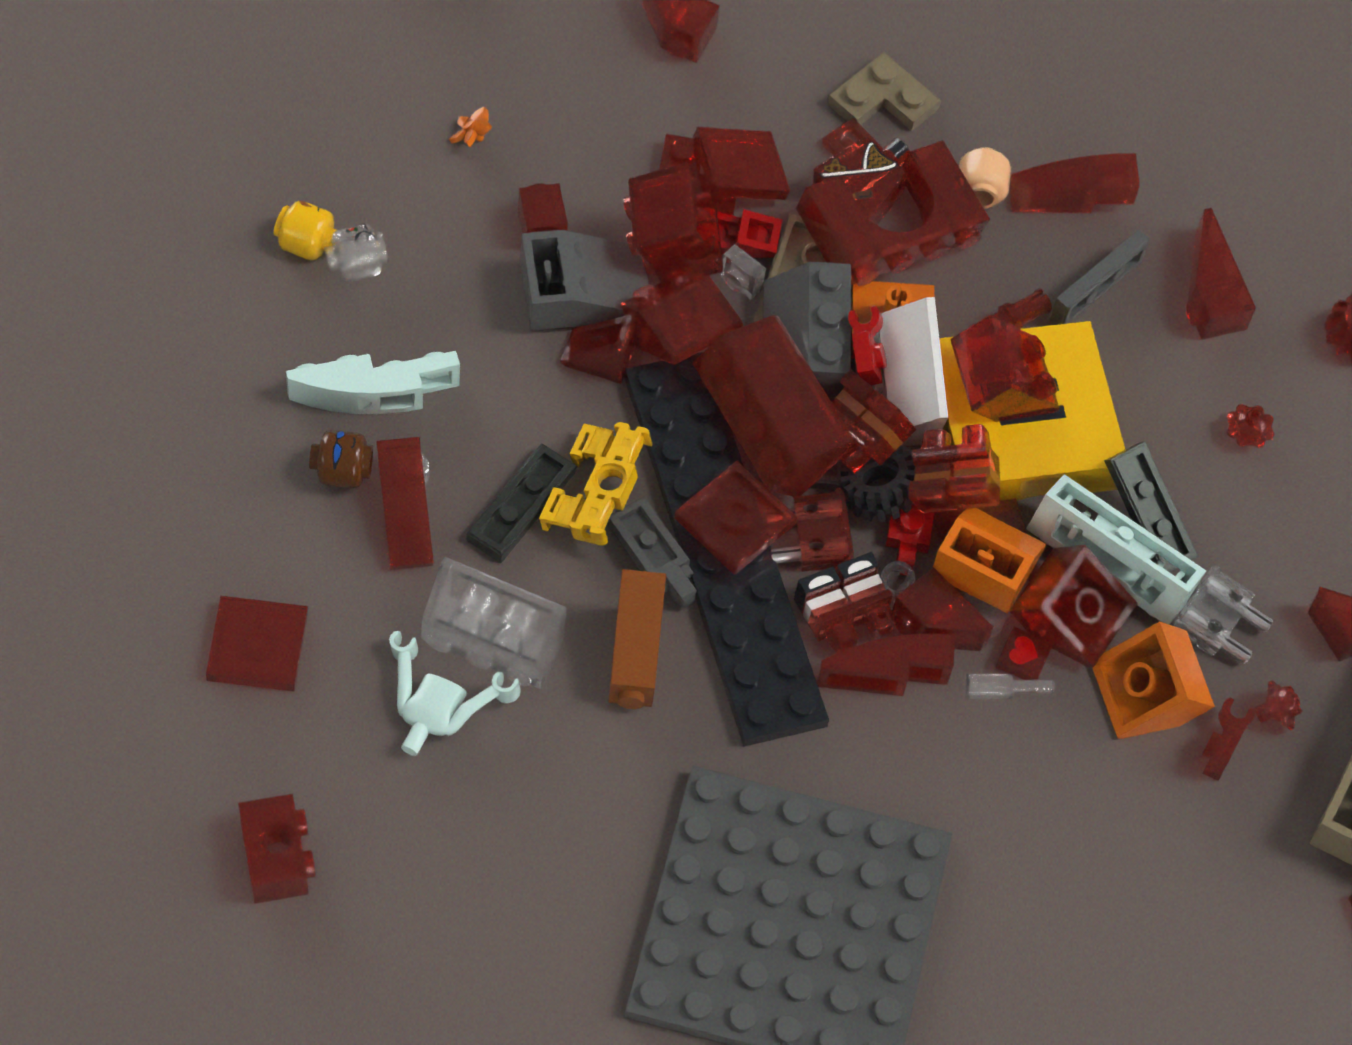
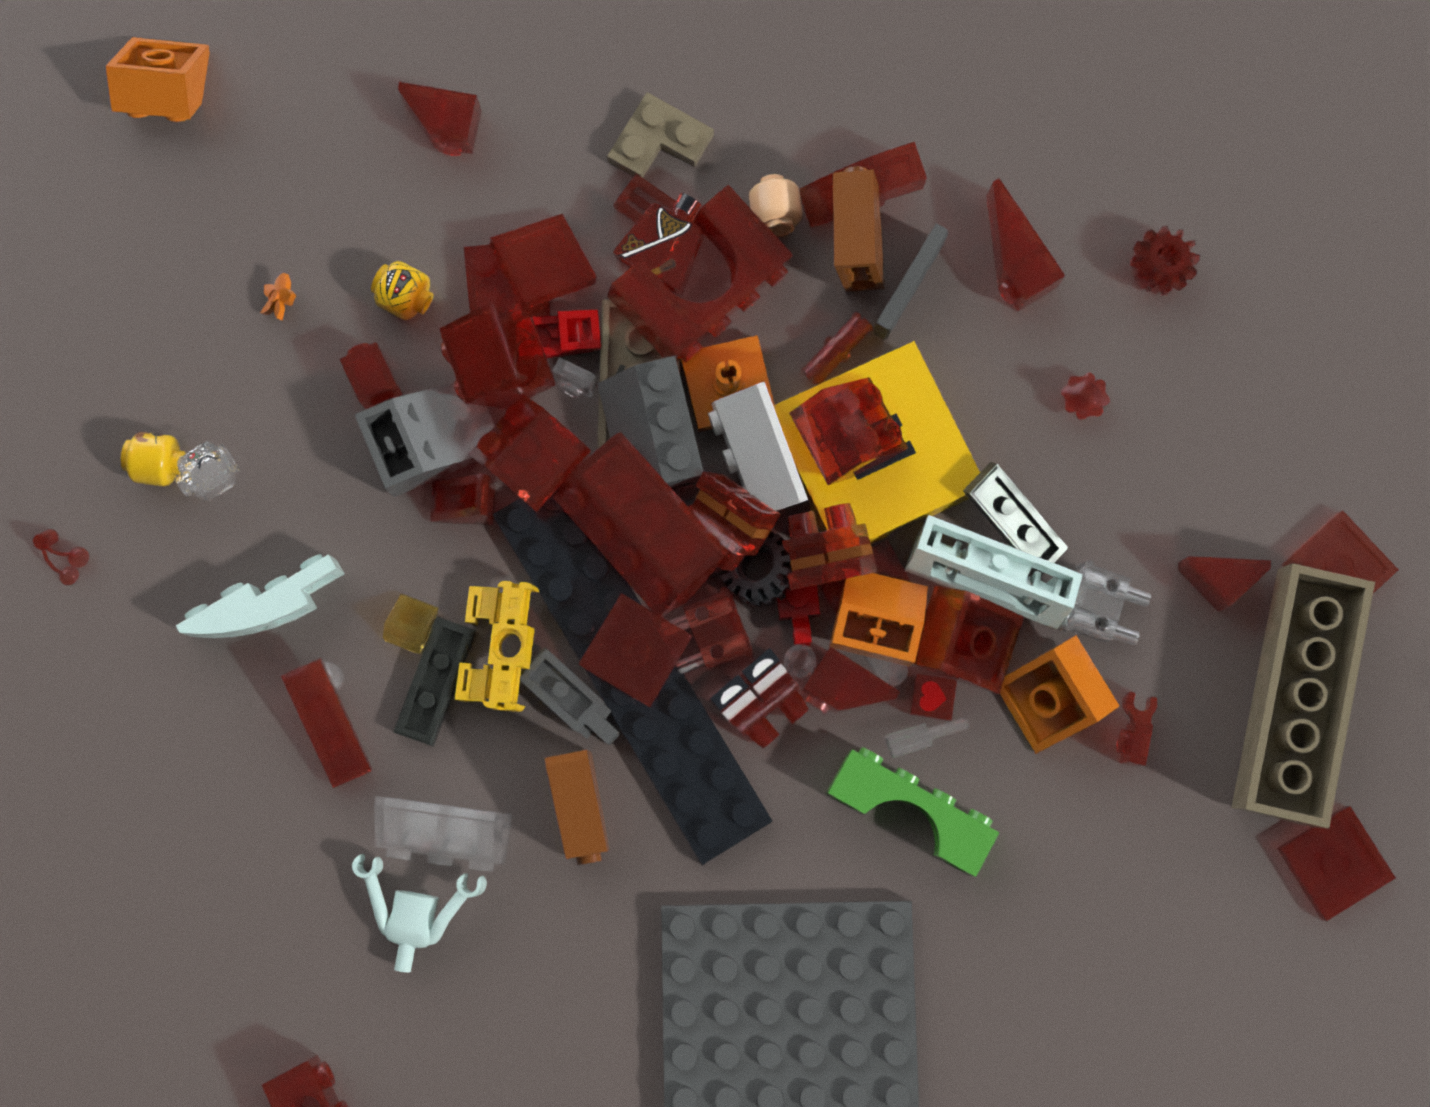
camera: 10 degrees left, 20 degrees up
(201, 297) = (77, 556): none -> clear red piece
(257, 643) = (234, 901): clear red tile -> none
(342, 459) = (255, 695): reddish brown head -> none
(510, 445) = (409, 623): none -> clear yellow slope
(595, 153) = (402, 290): none -> yellow head
(868, 355) = (715, 450): red plate -> none
(889, 663) = (815, 748): clear red slope -> none
(938, 711) = (958, 837): none -> bright green arch
(1059, 215) = (857, 230): none -> dark orange slope
(1280, 704) = (1177, 680): clear red plant -> none

